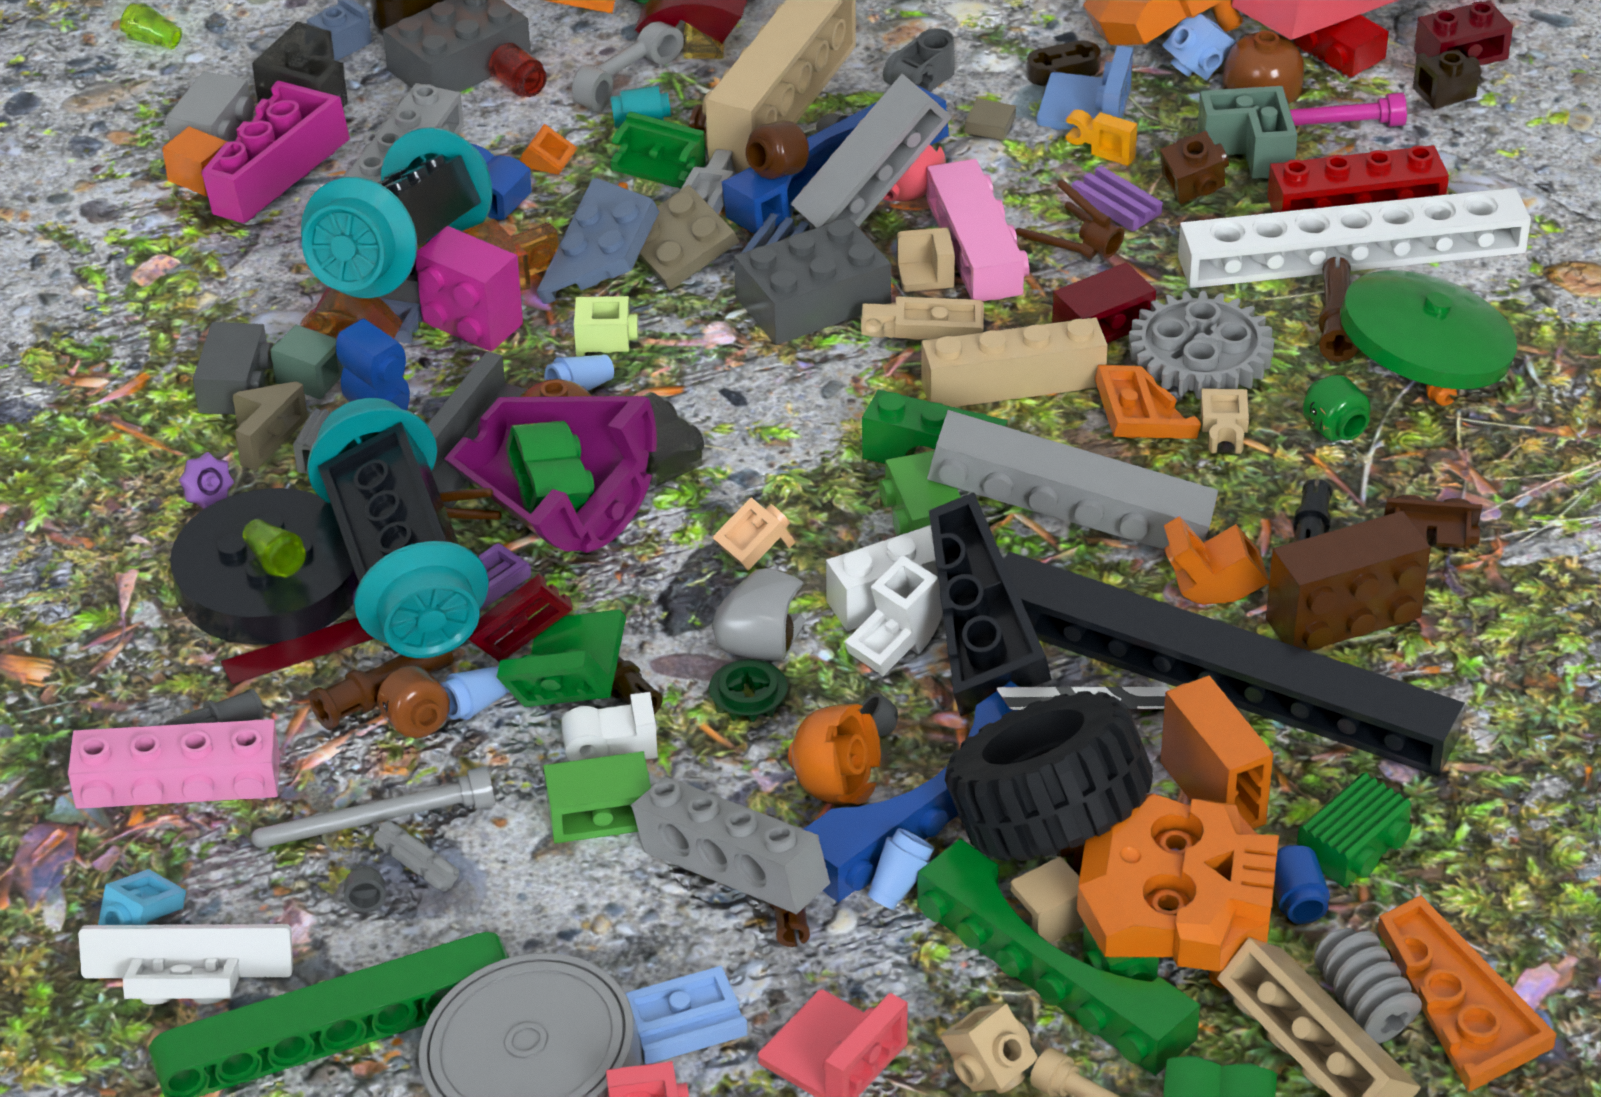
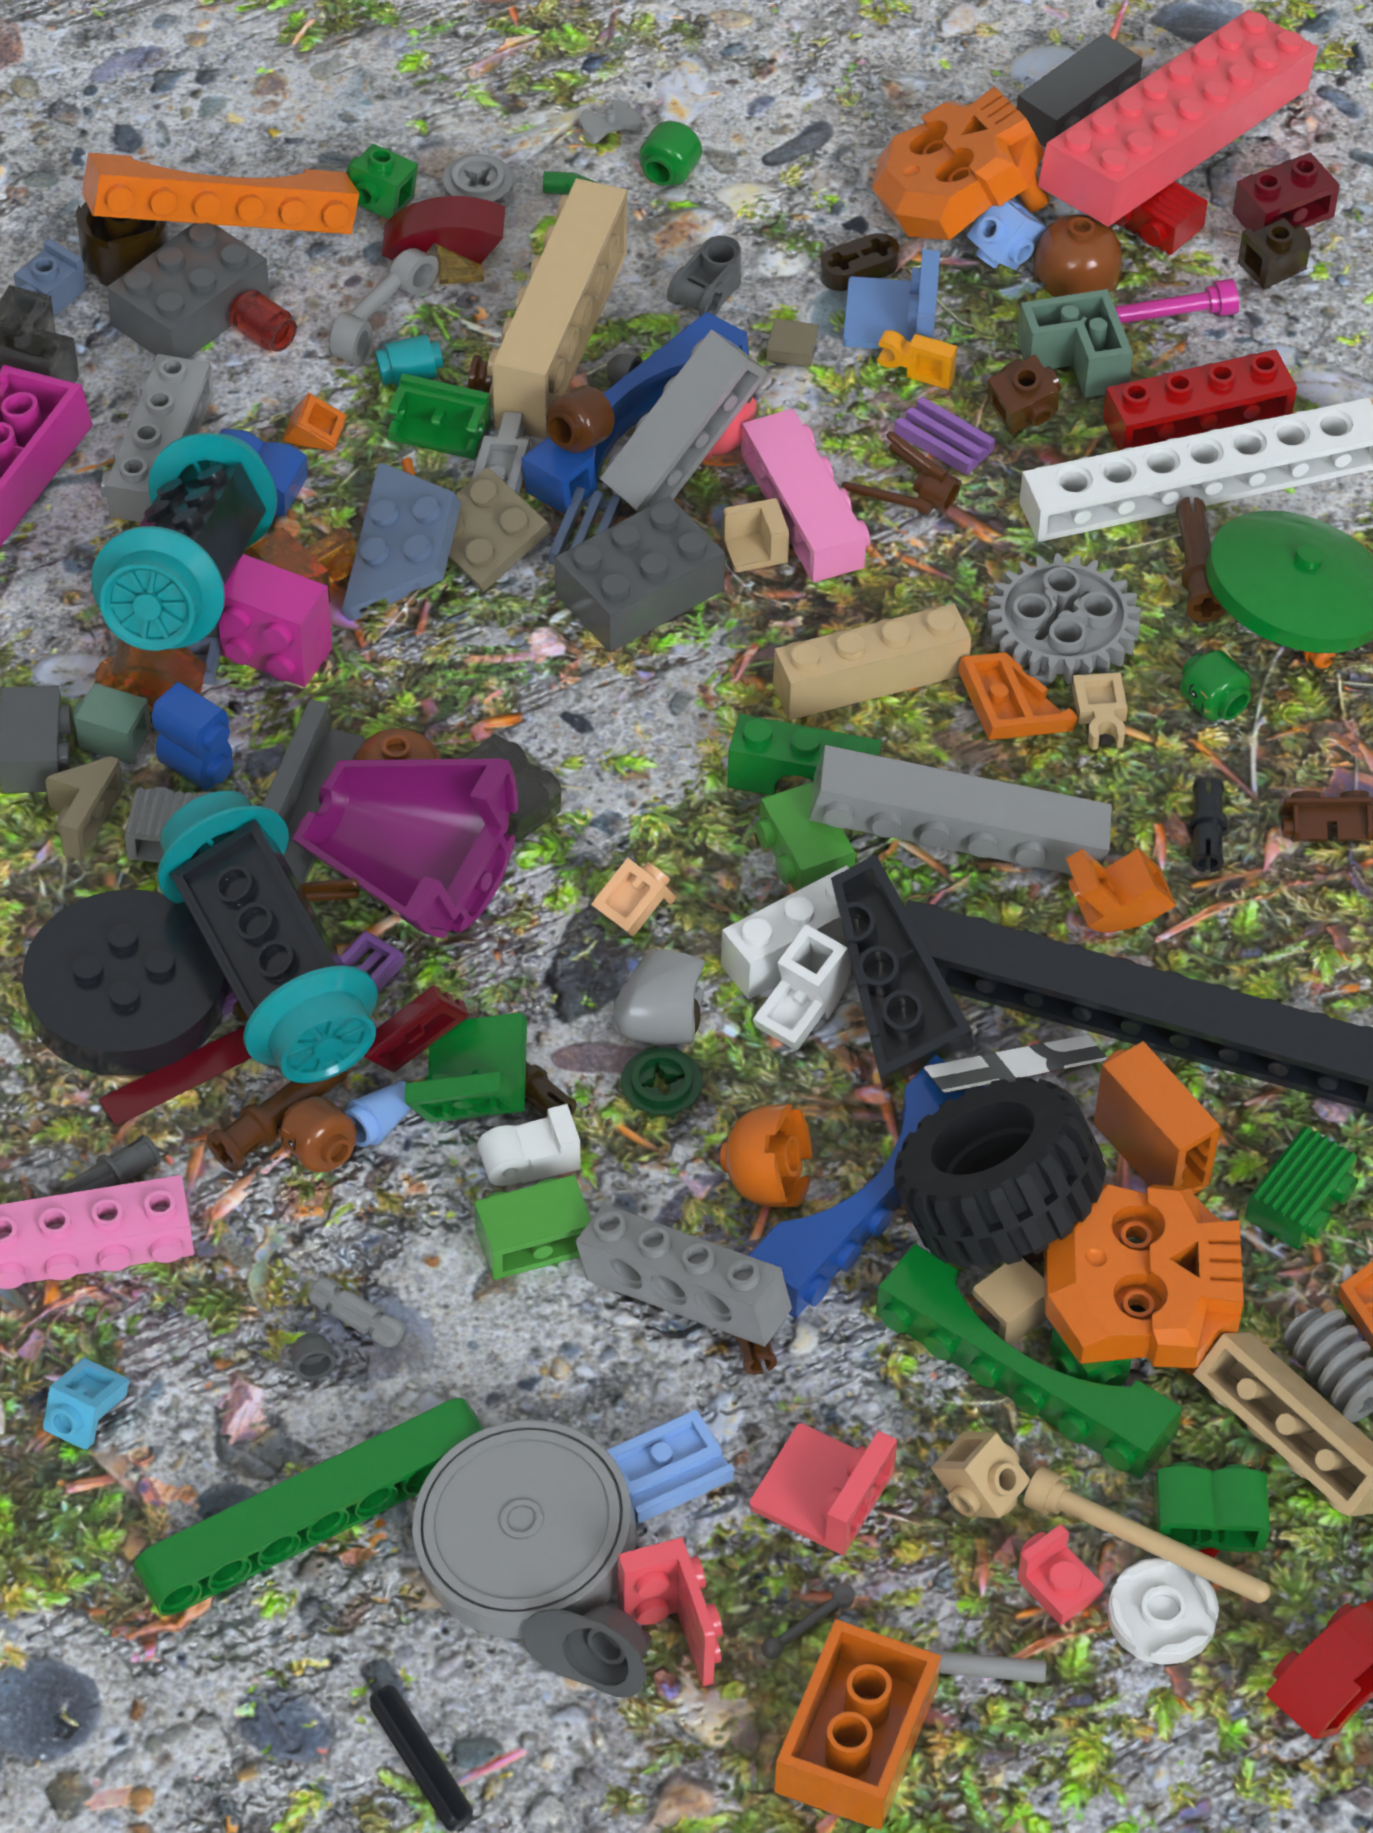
camera: 10 degrees left, 10 degrees up
(184, 959) = (146, 1460): white bracket -> none
(205, 480) = (36, 884): medium lavender piece -> none
(275, 548) = (140, 972): clear neon green cone -> none
(471, 790) = (398, 1230): light grey piece -> none
(547, 459) = (406, 841): green brick -> none
(583, 370) = (410, 710): light blue cone -> none
(604, 324) = (425, 649): yellowish green brick -> none
(882, 711) = (803, 1097): dark grey hinge -> none
(899, 867) = (857, 1280): light blue cone -> none
(923, 318) = (767, 610): tan hinge -> none
(1111, 296) = (956, 573): dark red brick -> none
(1300, 884) = (1262, 1256): blue brick -> none
(1348, 582) = (1259, 905): reddish brown brick -> none

